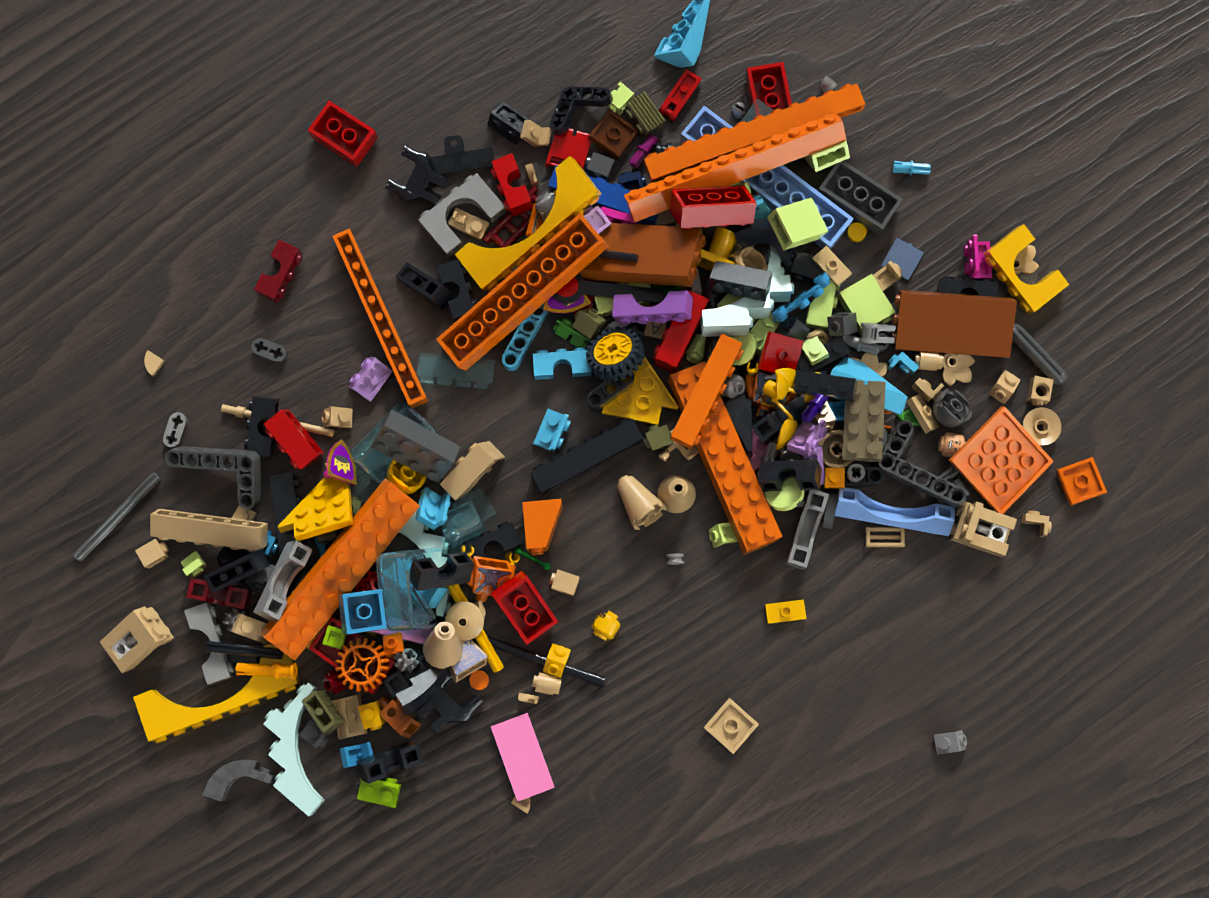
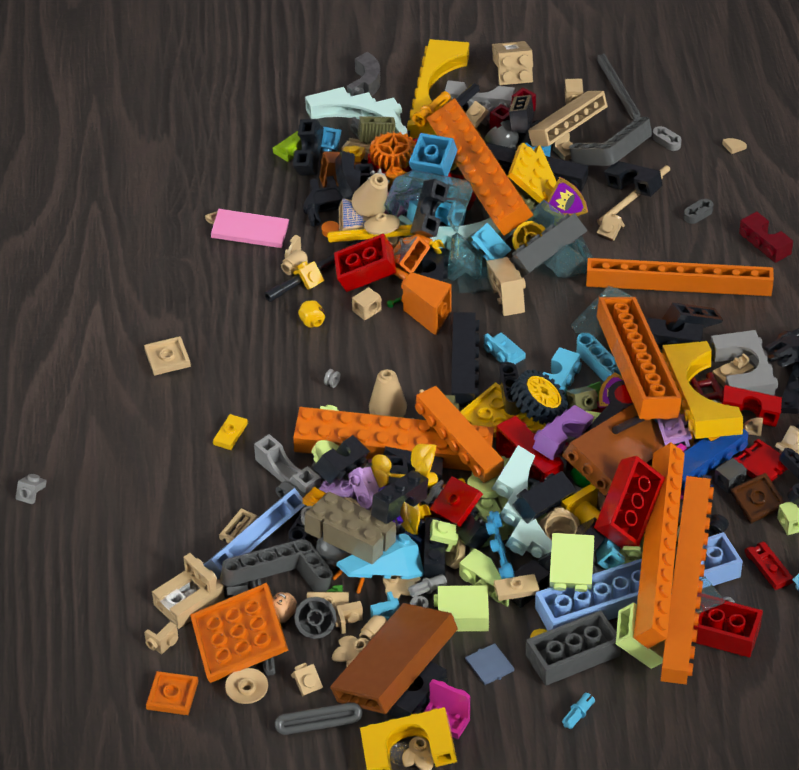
camera: 120 degrees right, 35 degrees down
(193, 565) = (544, 107): yellowish green bracket -> none
(274, 595) = (491, 128): light grey arch -> none
(293, 439) = (608, 185): red brick -> none
(370, 378) = (629, 251): lavender bracket -> none
(639, 502) = (407, 370): tan cone -> none
(643, 151) = (727, 512): magenta axle -> none
(644, 114) = (766, 528): olive brick -> none
(734, 387) = (456, 470): light grey head -> none
(827, 84) = (711, 686): light grey hinge -> none
(842, 324) = (455, 571): dark grey brick -> none
(871, 330) = (426, 590): light grey piece -> none
(888, 275) = (479, 637): tan bracket -> none
(1045, 385) = (281, 700): tan brick -> none

